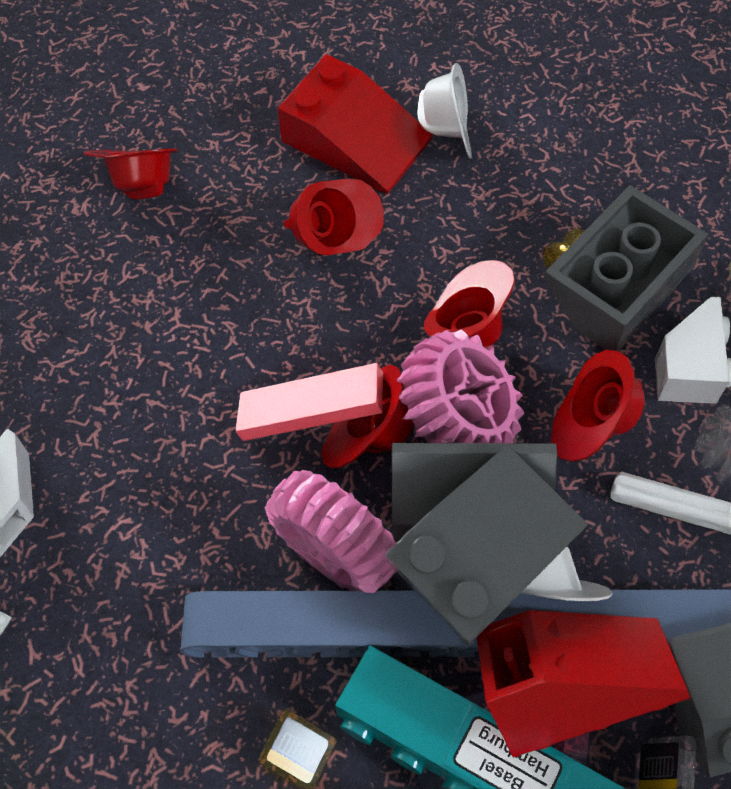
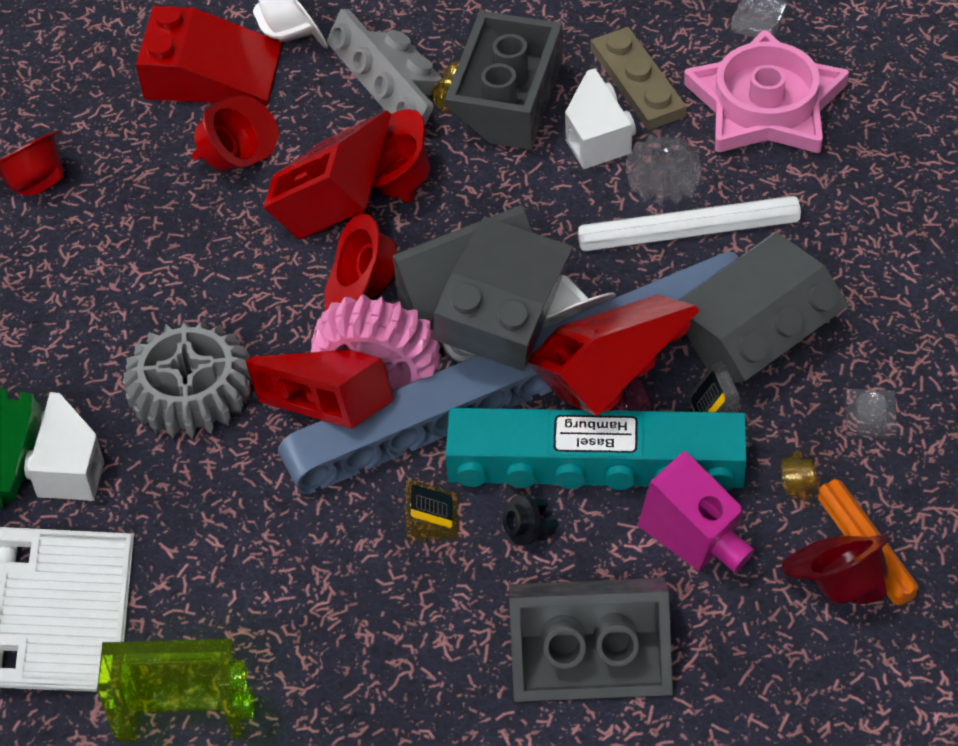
camera: 25 degrees left, 10 degrees down
(137, 443) = (212, 389): none -> light grey gear
(262, 556) = (324, 385): none -> red slope
(310, 402) = (299, 274): tile -> none
(393, 306) = (329, 179): none -> red slope
(459, 391) = (417, 207): bright pink gear -> none
(517, 204) = (385, 64): none -> light grey bracket
(600, 405) = (540, 179): red piece -> none

